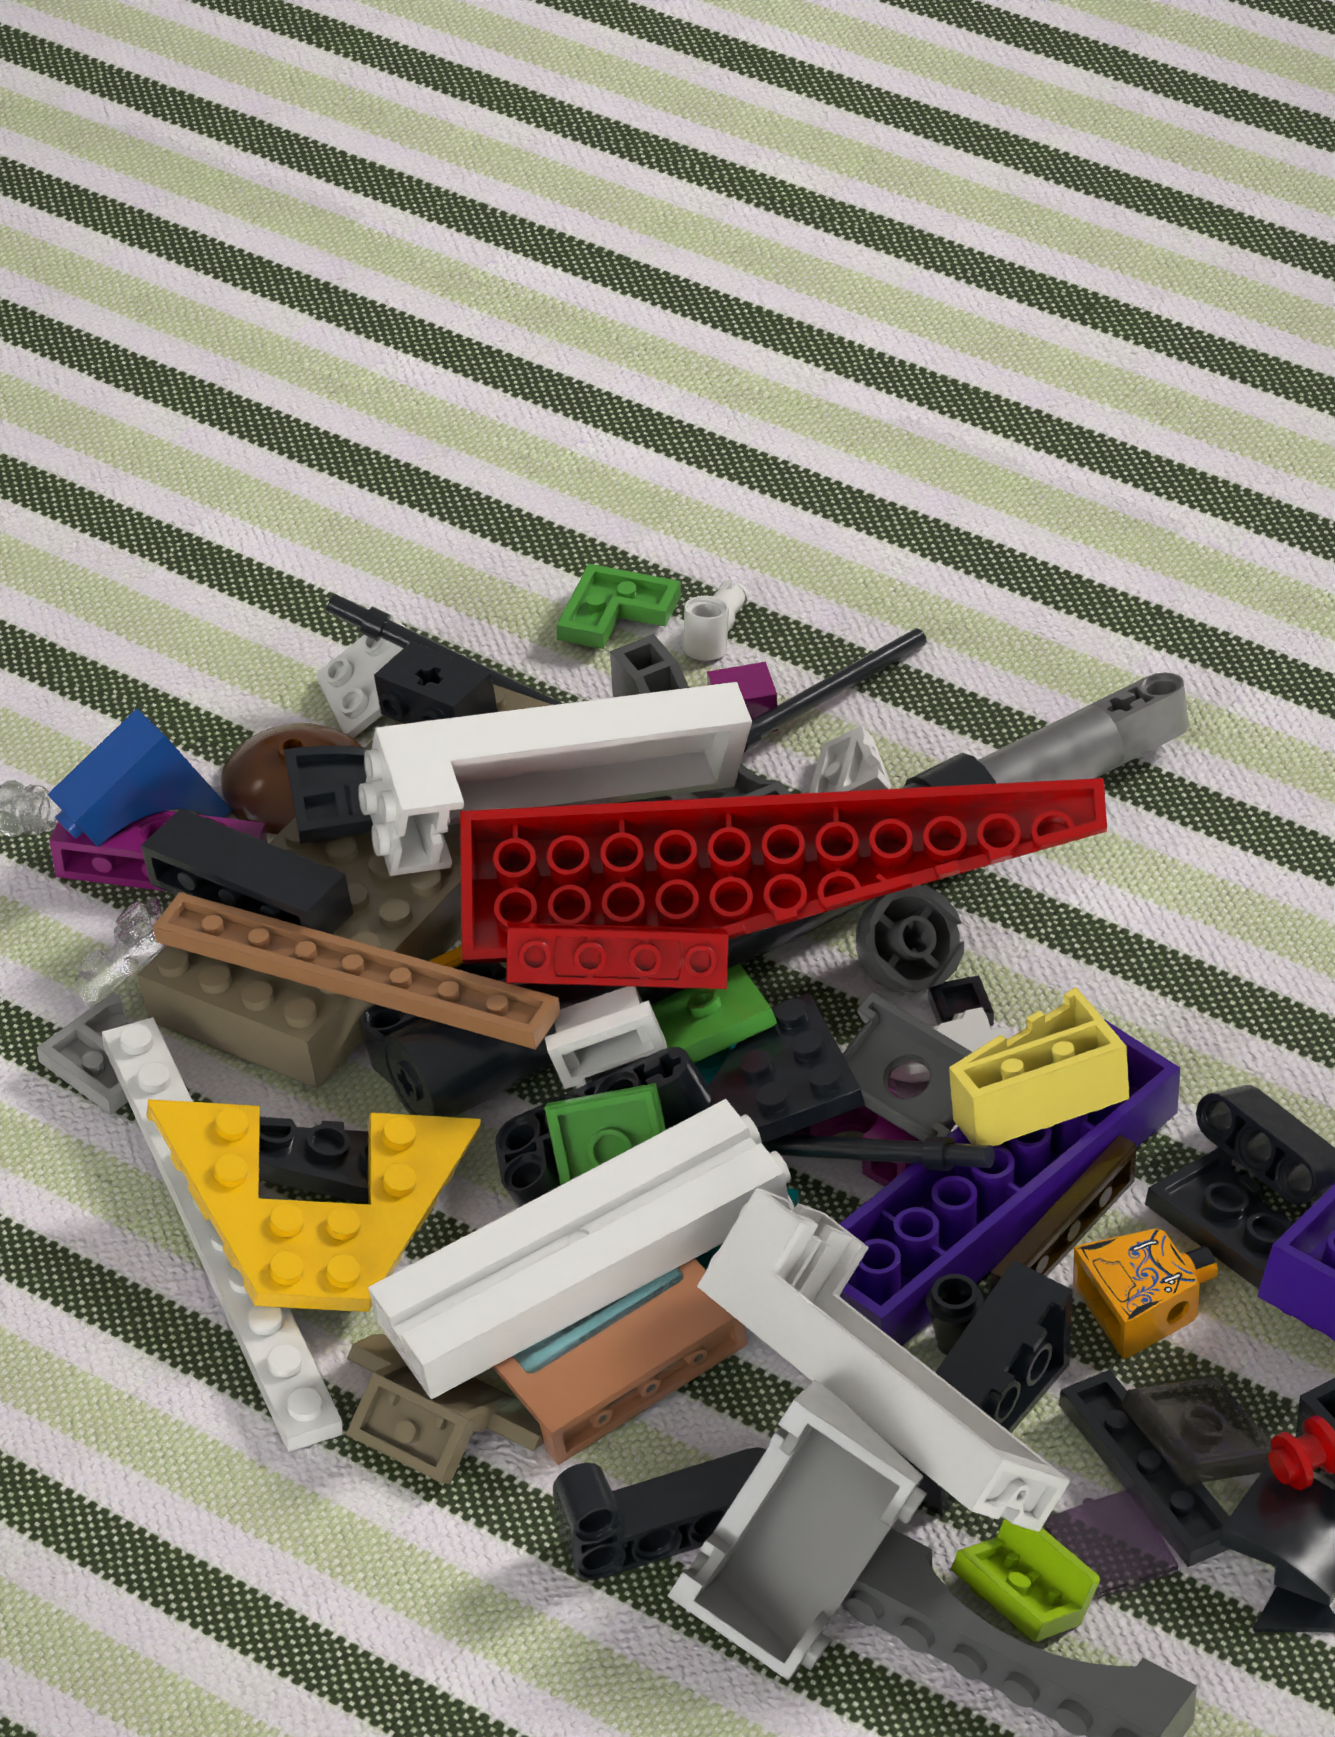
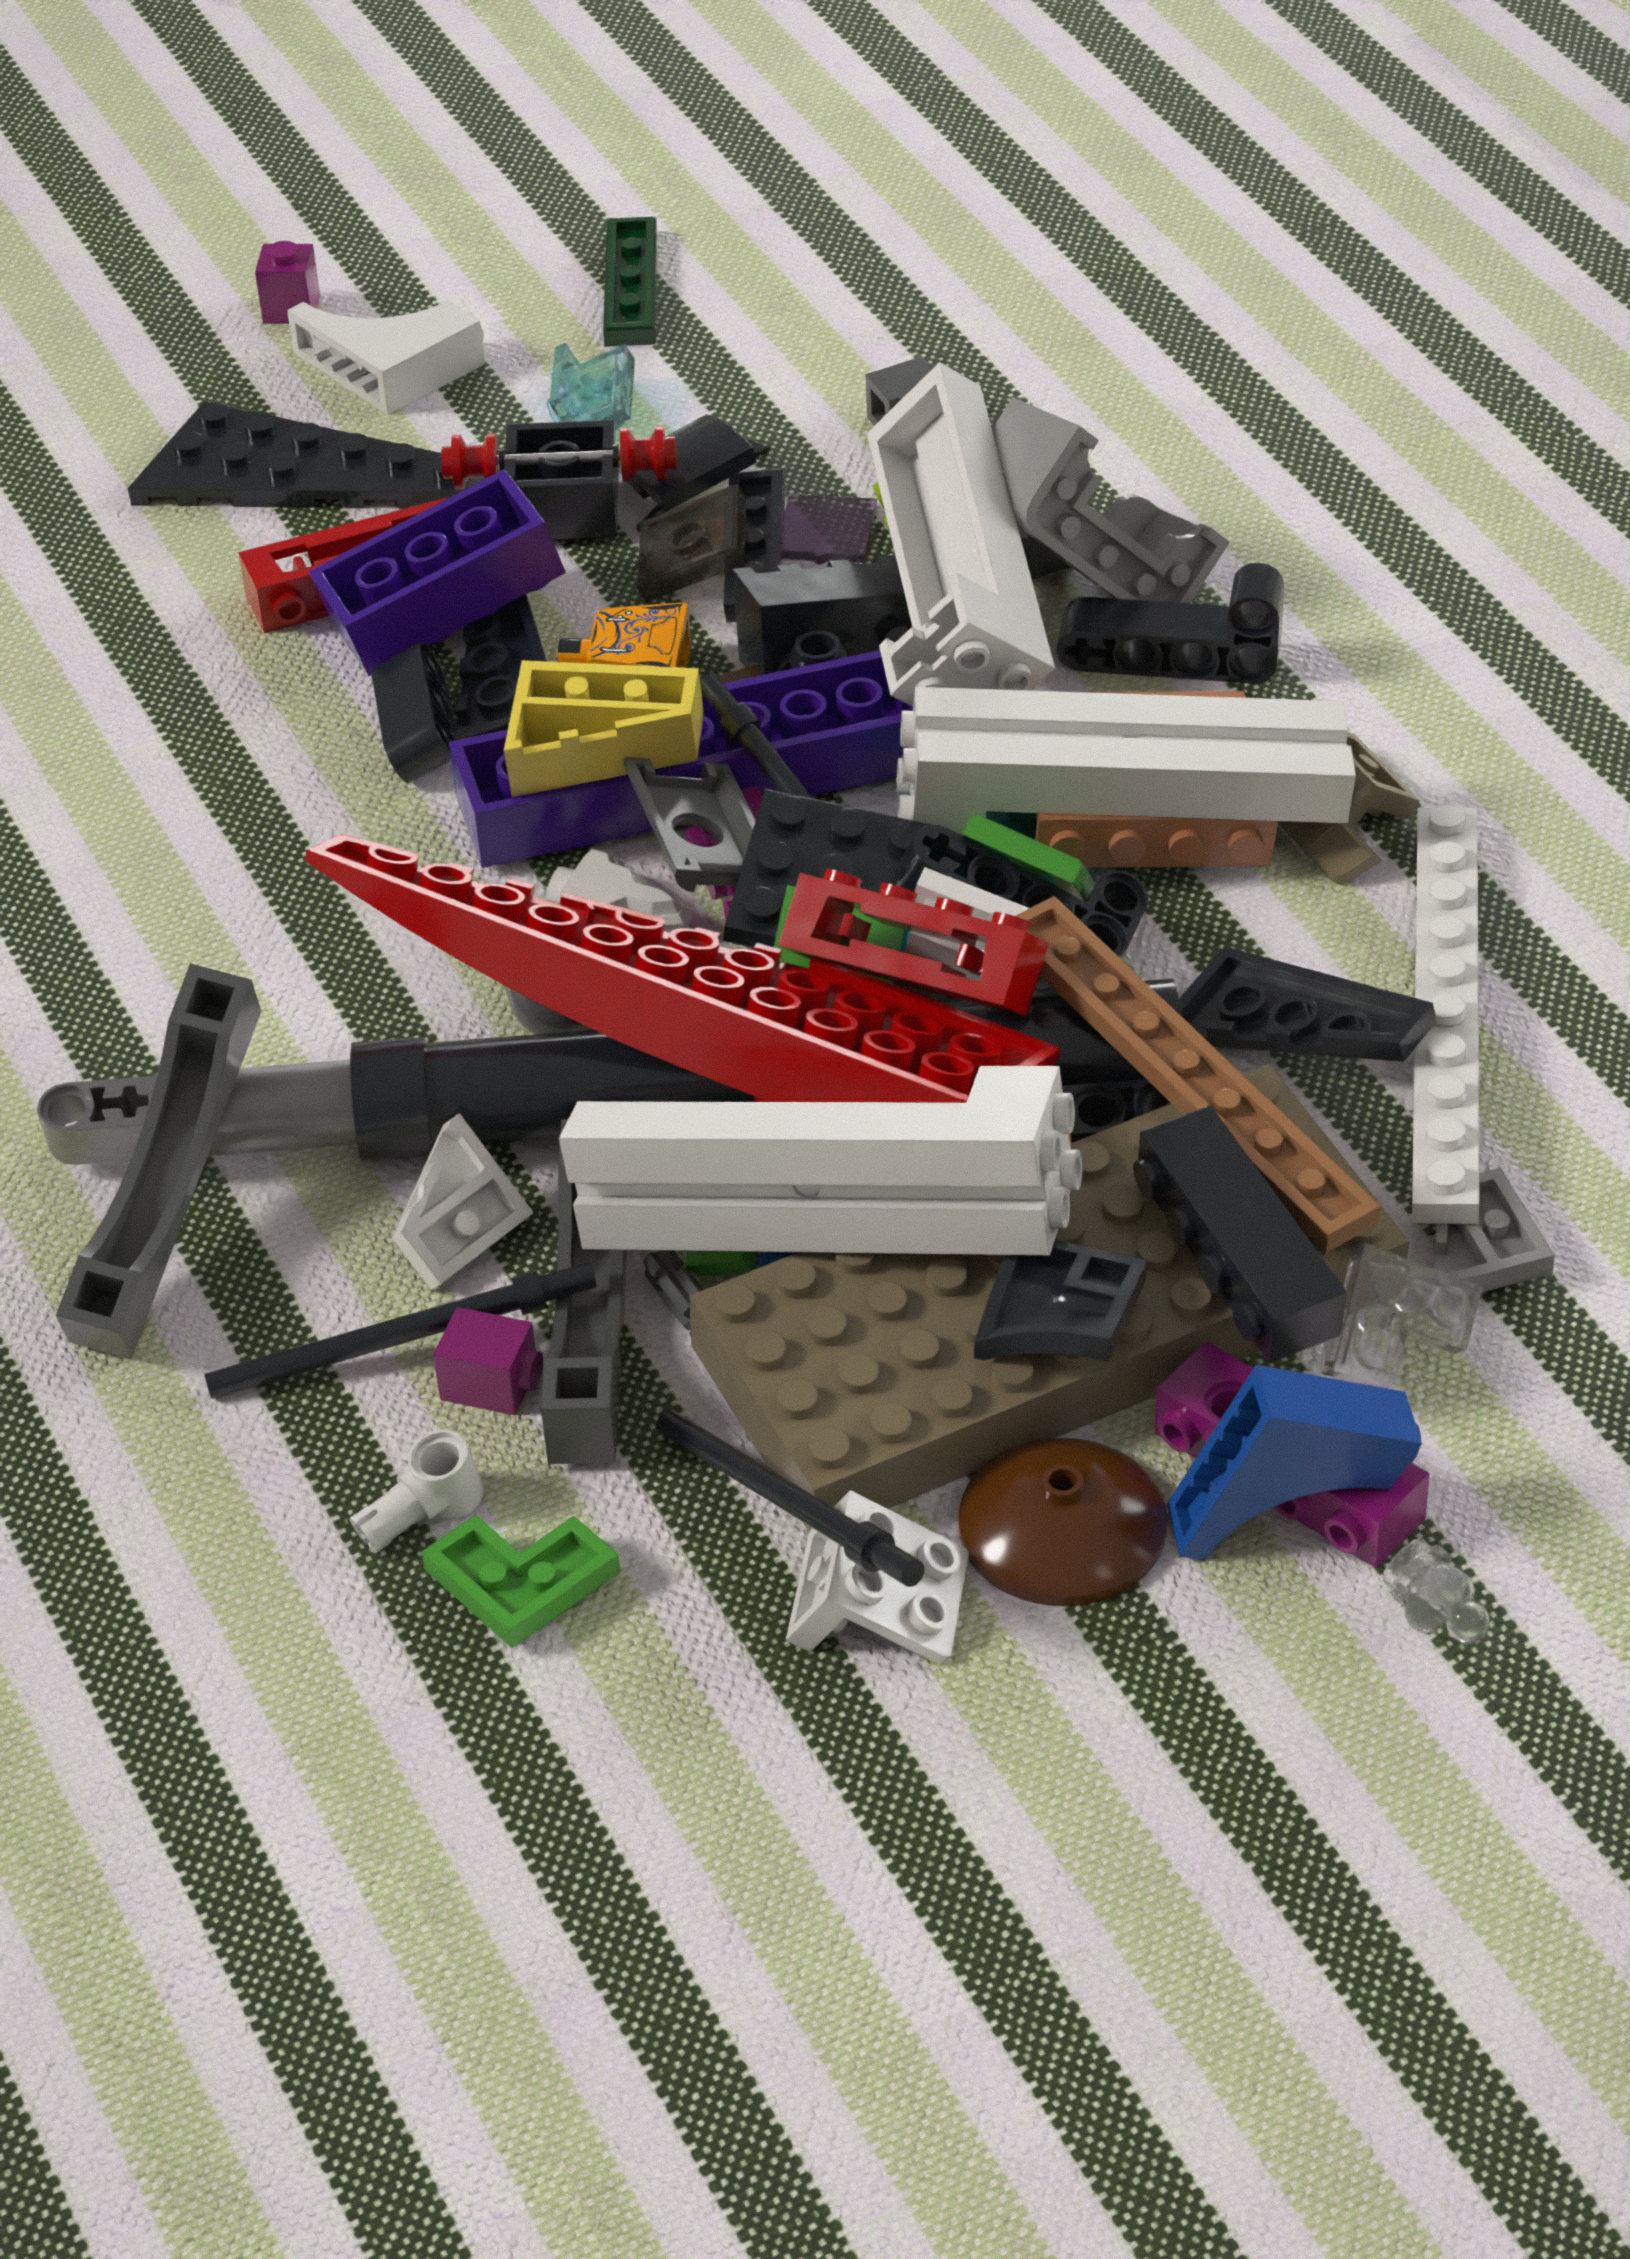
camera: 150 degrees left, 0 degrees up
(311, 1249) = (1349, 906): yellow wing -> none
(432, 686) = (874, 1379): black brick -> none
(1062, 687) = (132, 1245): none -> dark grey arch

